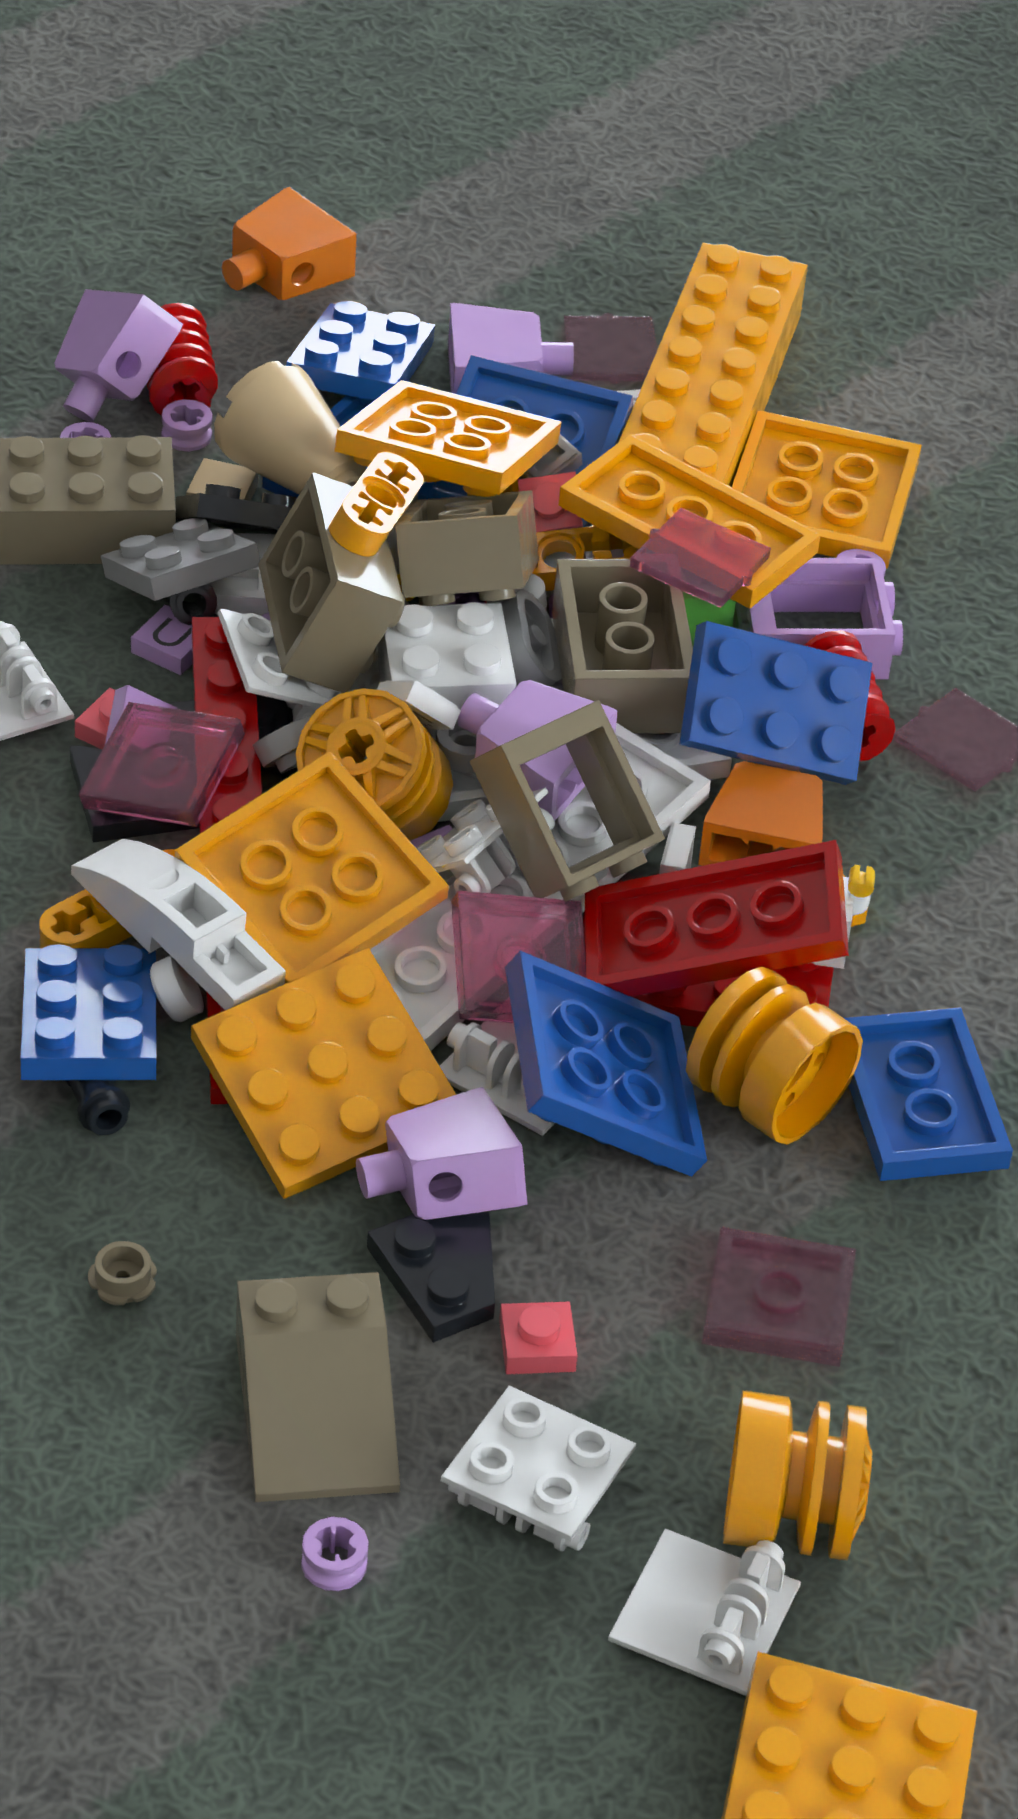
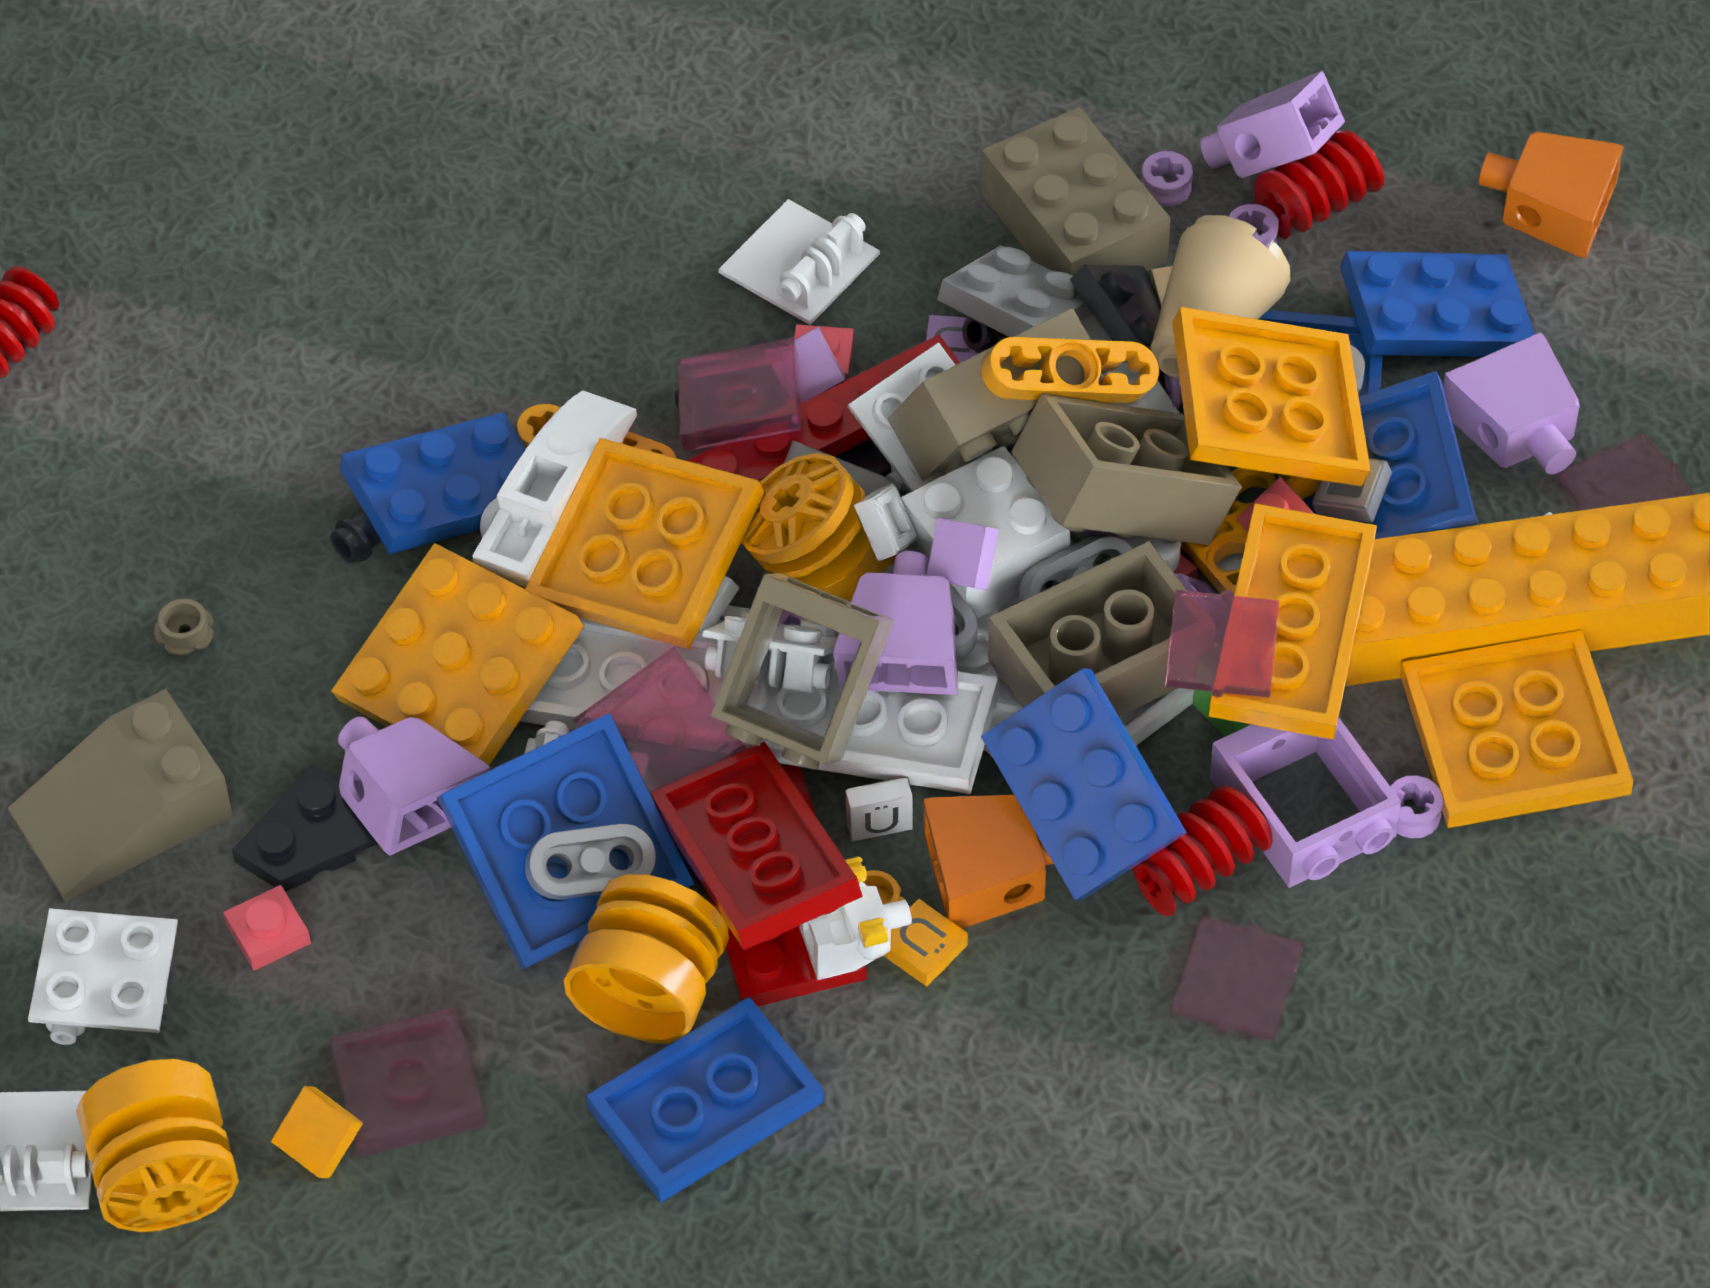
camera: 70 degrees right, 10 degrees up
(502, 661) = (963, 553): none -> lavender tile
(653, 1046) = (587, 859): none -> light grey plate
(813, 1371) = (316, 1132): none -> light orange tile

